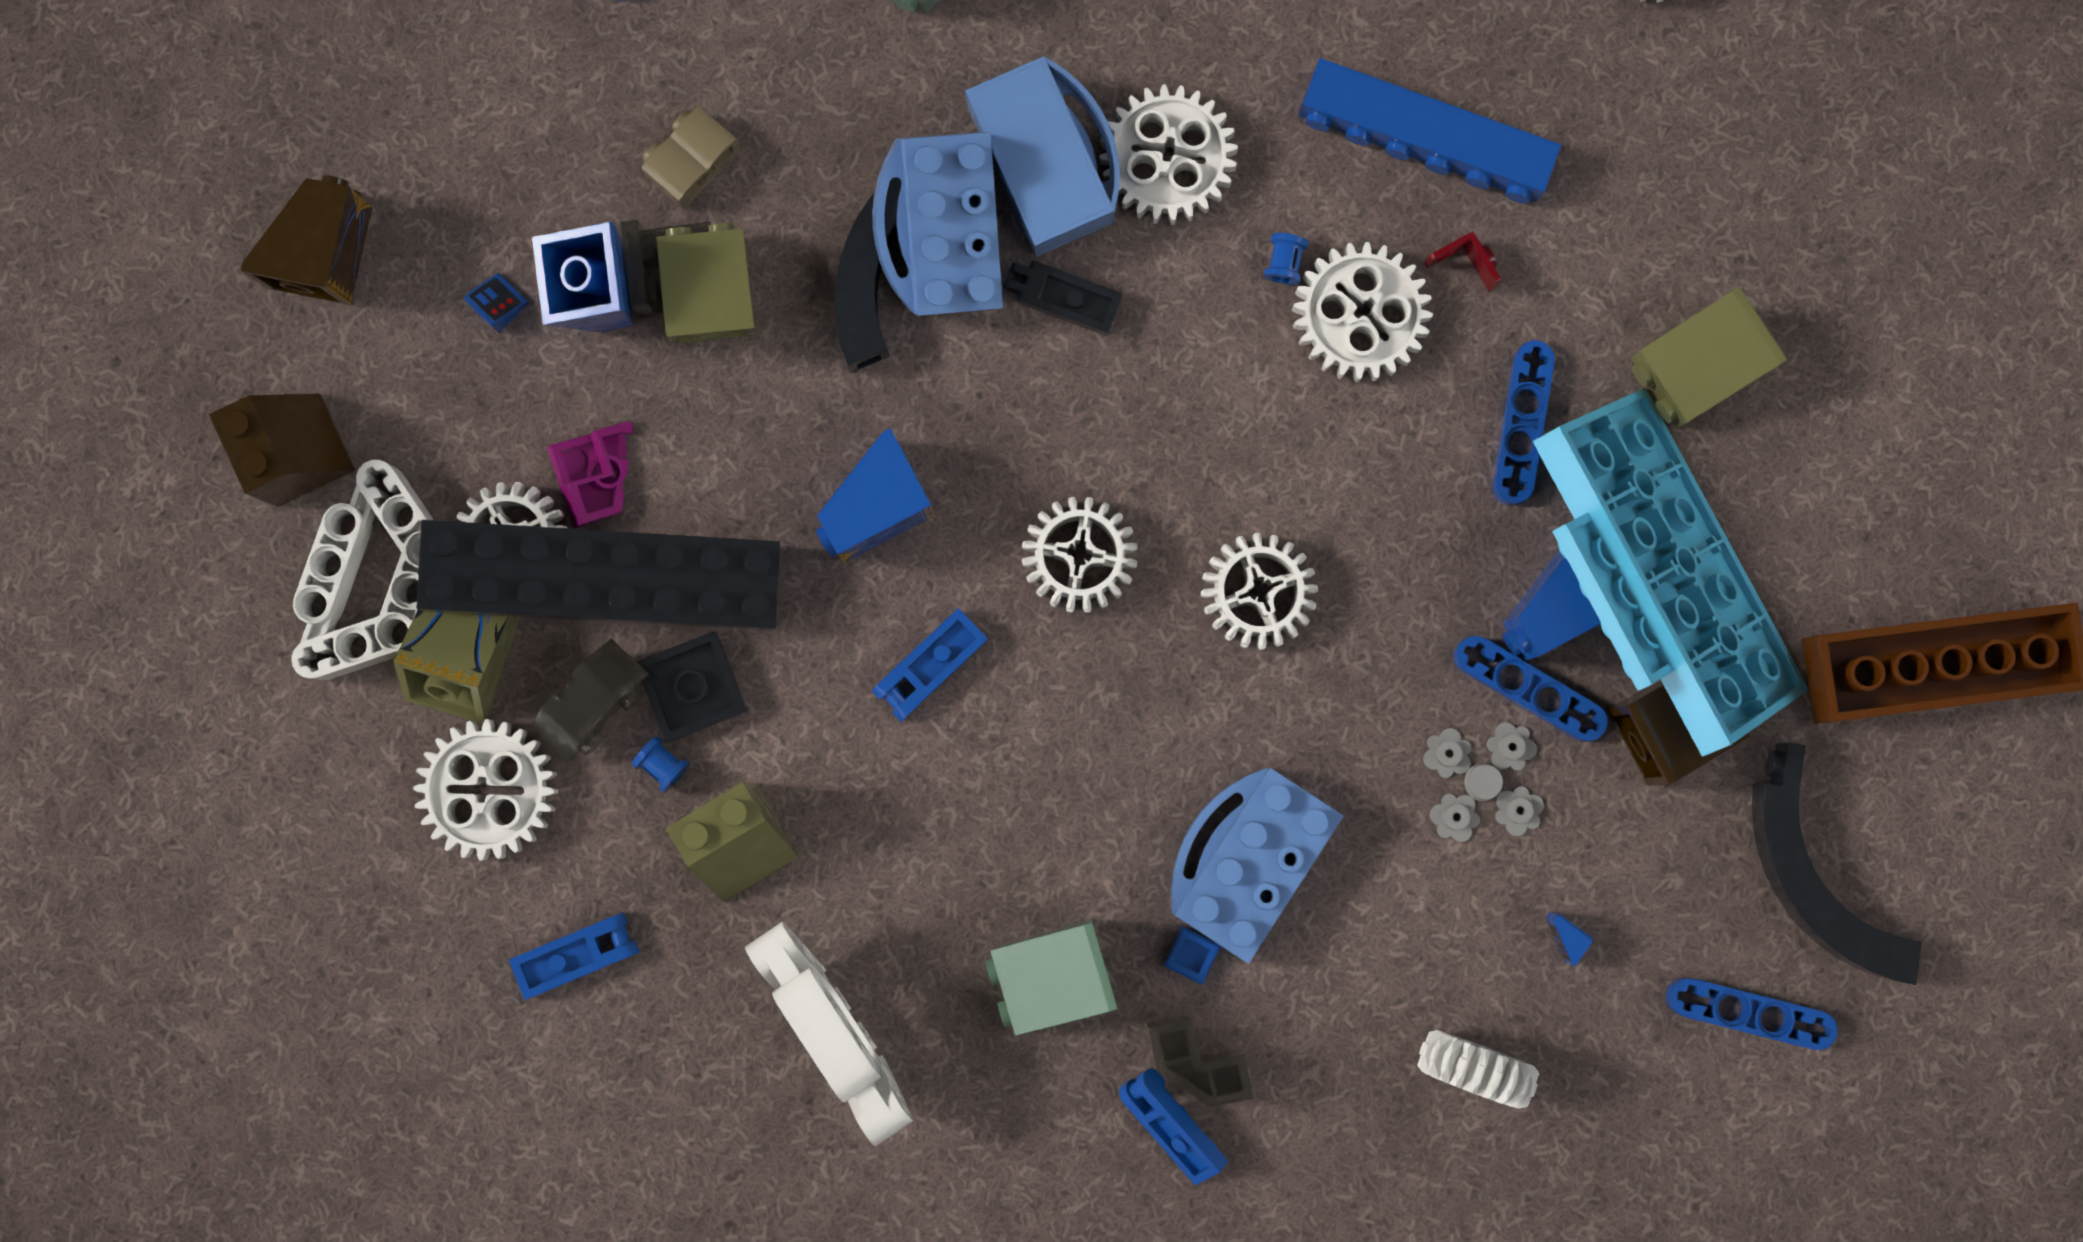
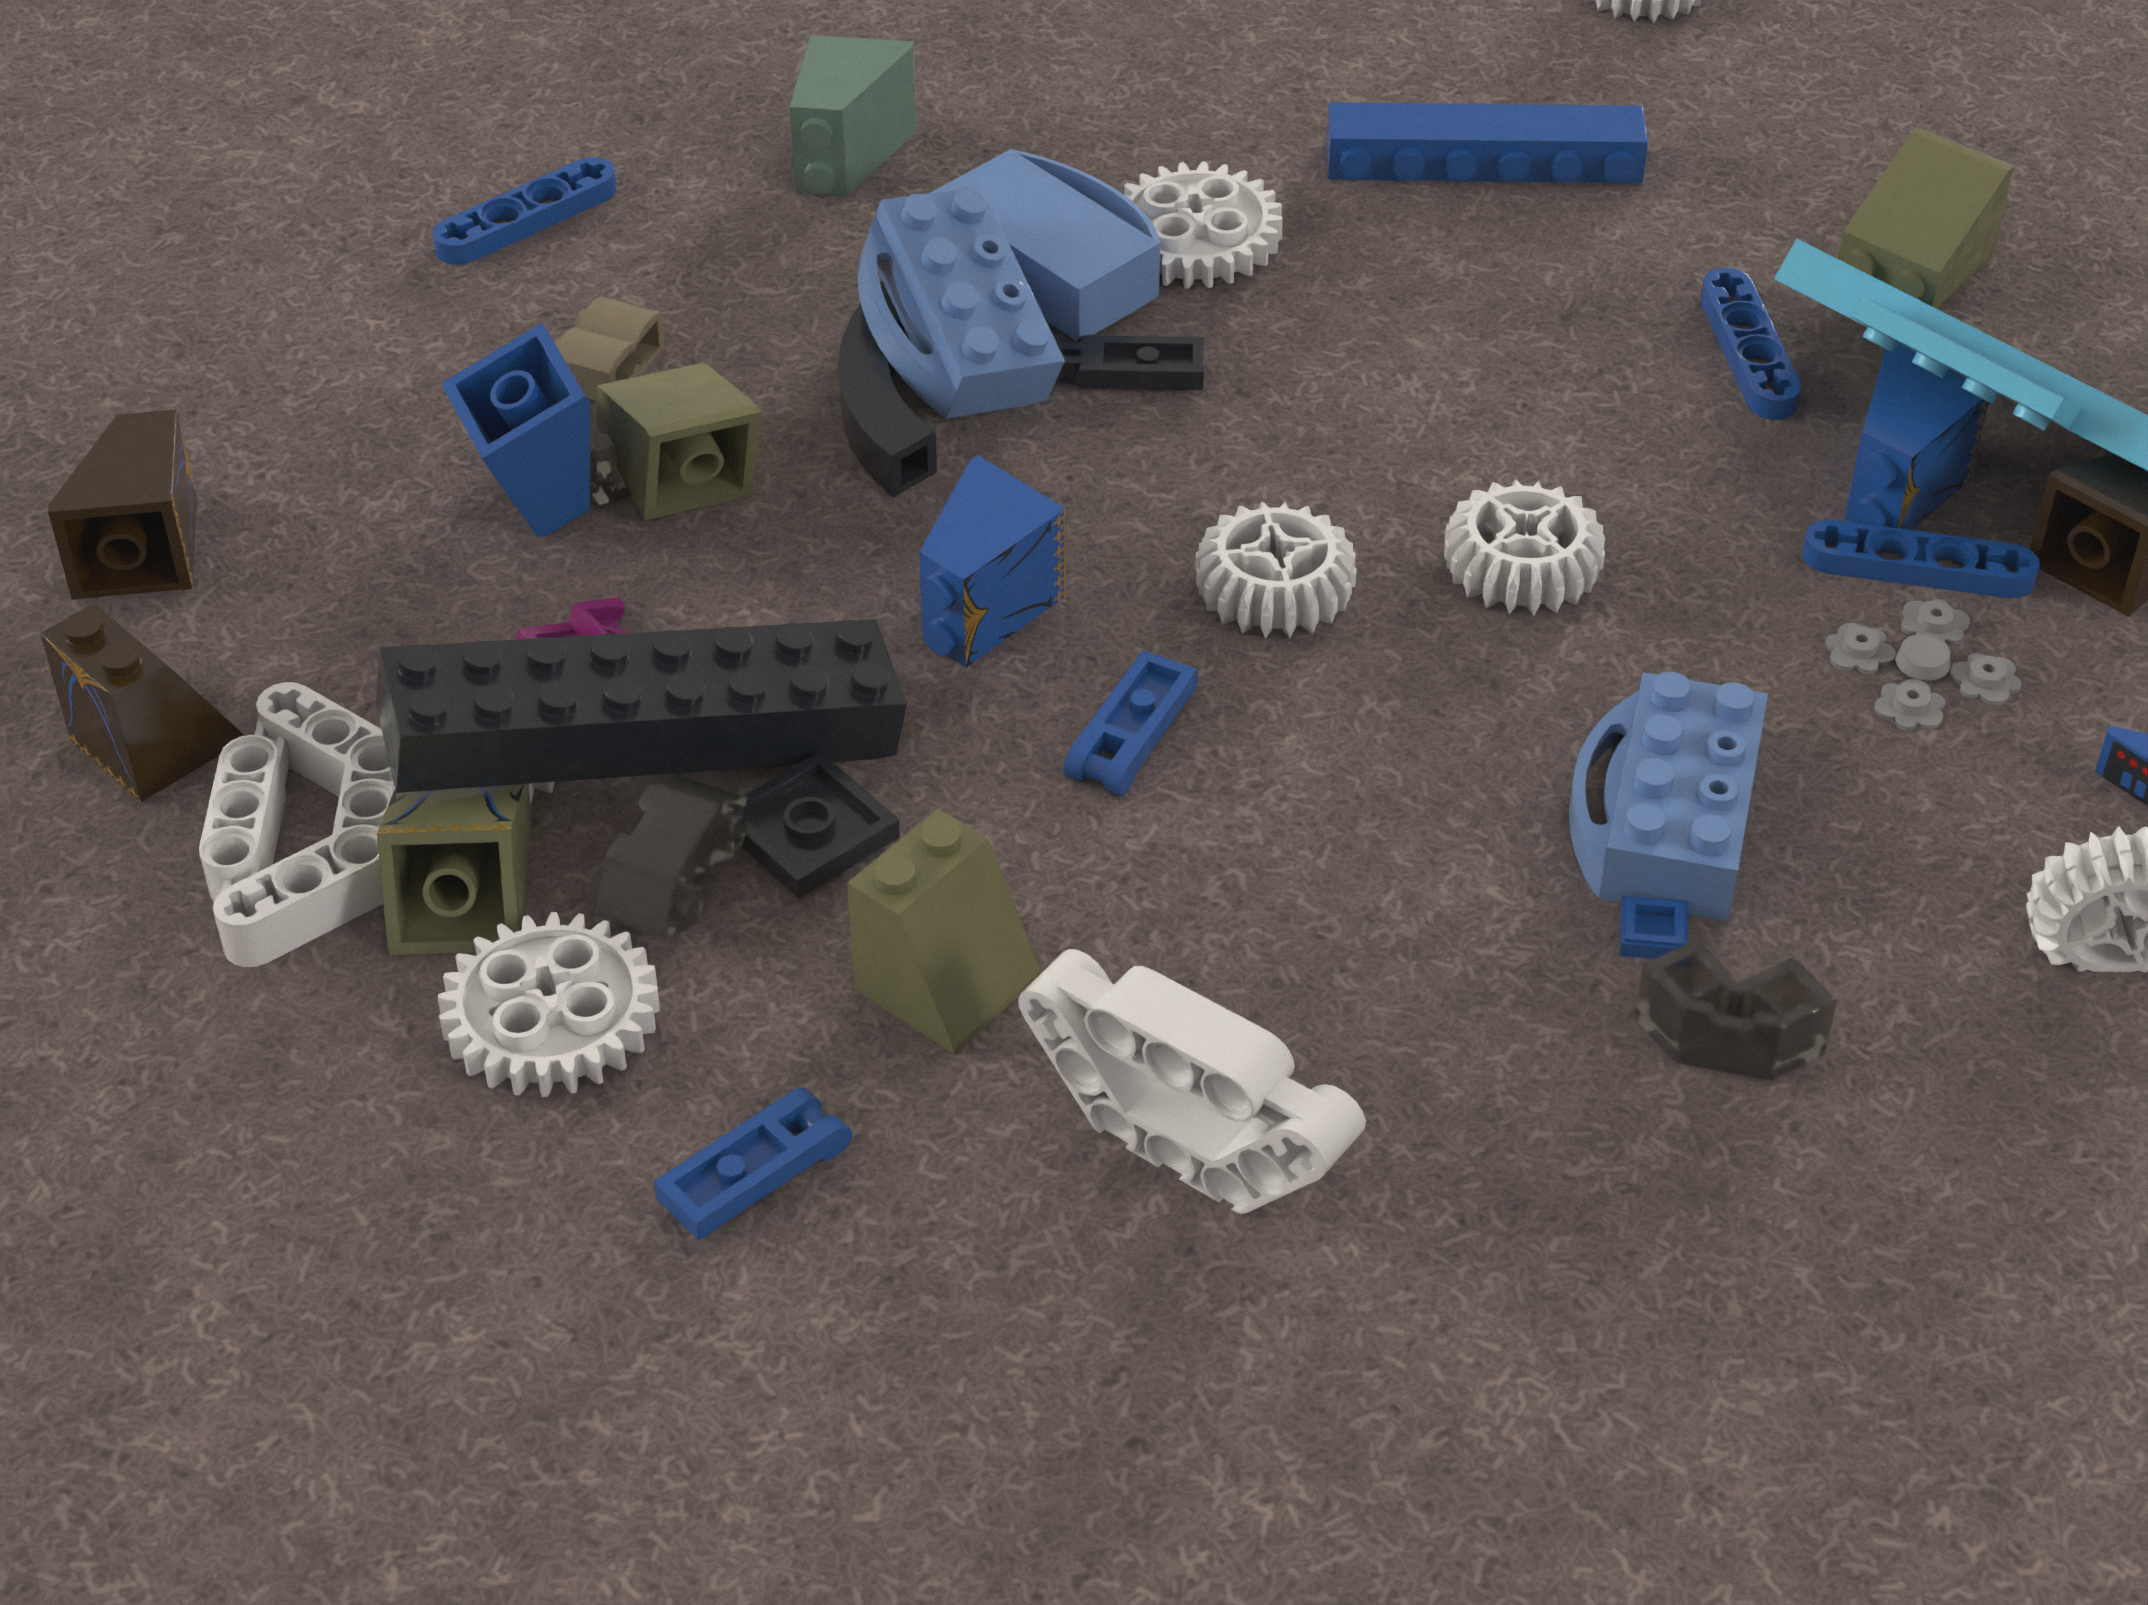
camera: 20 degrees left, 40 degrees down
(496, 301) = (392, 536): slope -> none
(660, 764) = (798, 911): blue bush -> none
(1051, 978) = (1481, 969): sand green slope -> none
(1172, 1126) = (1745, 1107): blue plate -> none
(1286, 258) = (1381, 267): blue bush -> none
(1391, 288) = (1500, 293): white gear -> none
(1480, 256) = (1599, 219): dark red bracket -> none

